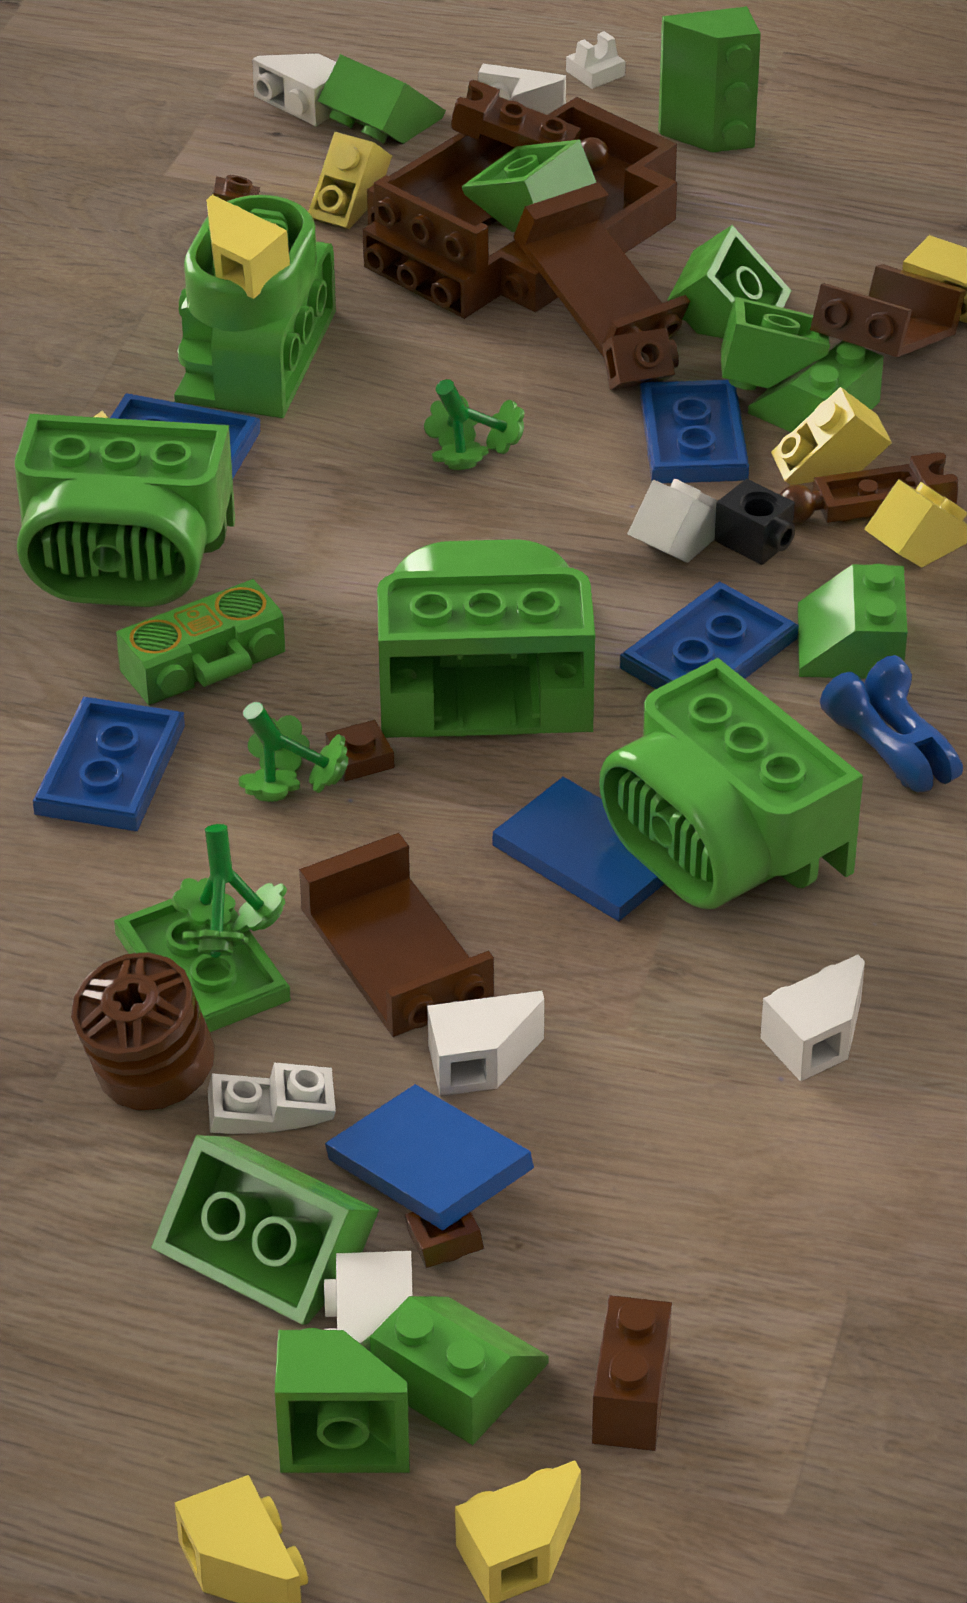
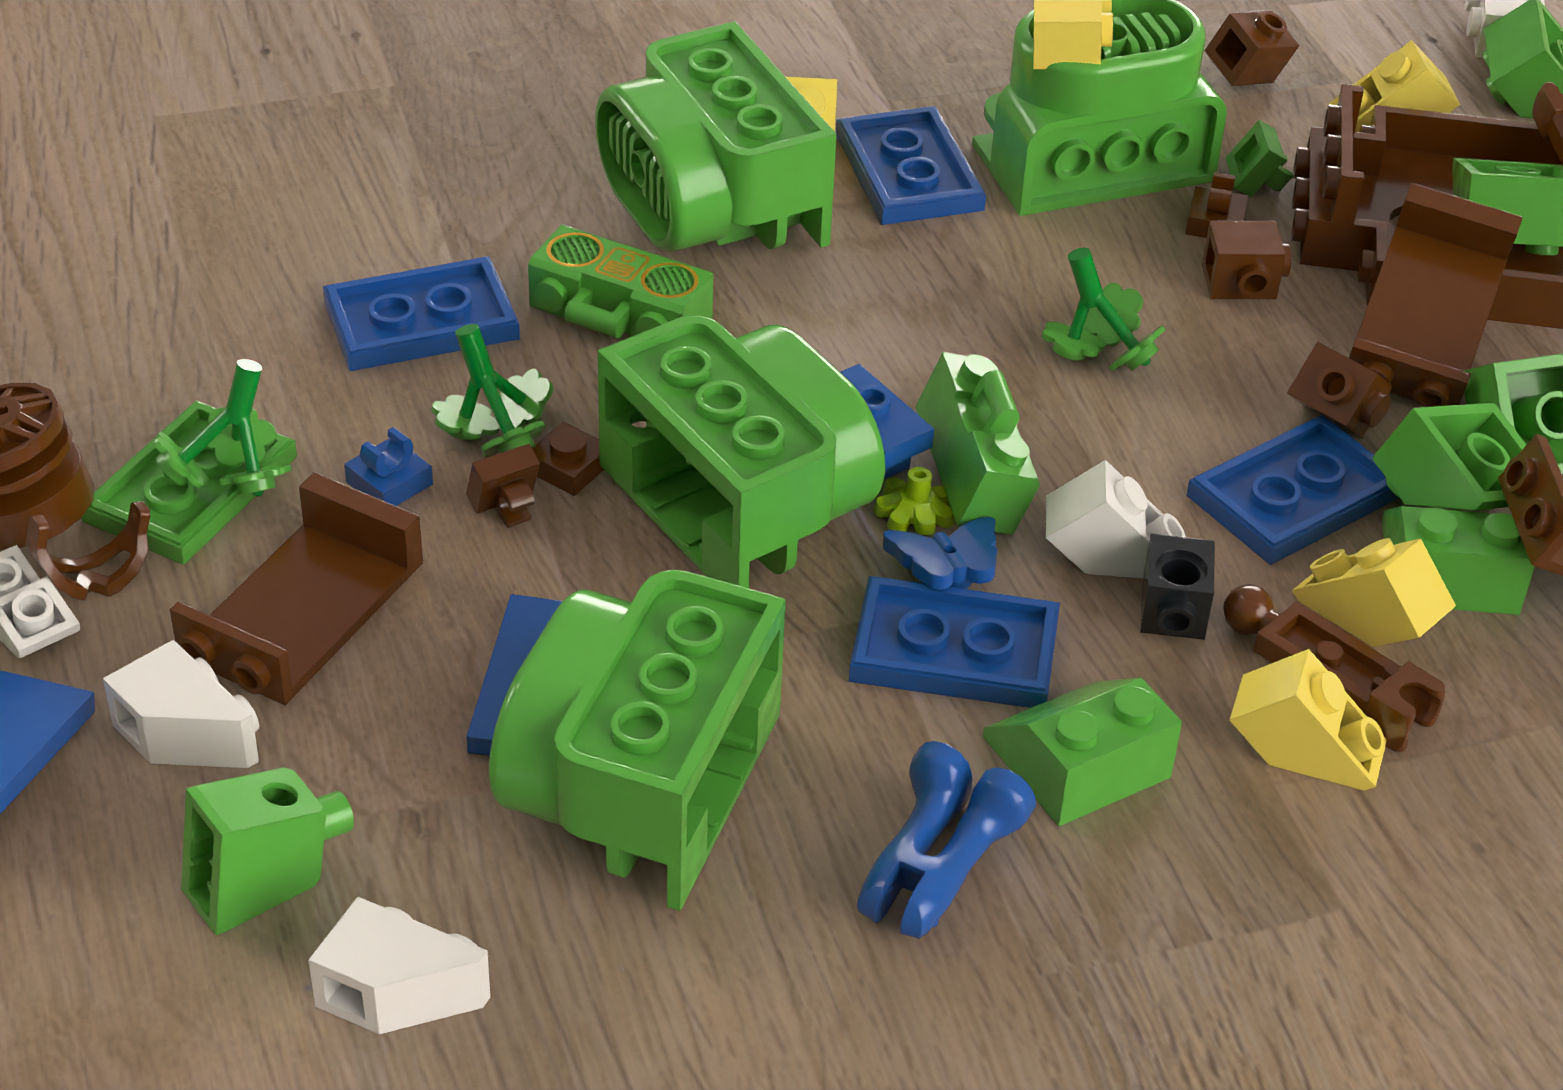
camera: 55 degrees right, 0 degrees up
(256, 1008) = (130, 539): none -> reddish brown helmet
(291, 845) = (389, 469): none -> blue tile
(355, 274) = (1258, 161): none -> bright green tile
(375, 787) = (505, 483): none -> reddish brown tile
(382, 323) = (1215, 204): none -> reddish brown tile
(457, 335) = (1245, 260): none -> reddish brown brick
(585, 540) = (977, 441): none -> bright green piece
(636, 606) = (946, 561): none -> blue animal
(666, 1020) = (255, 843): none -> bright green torso

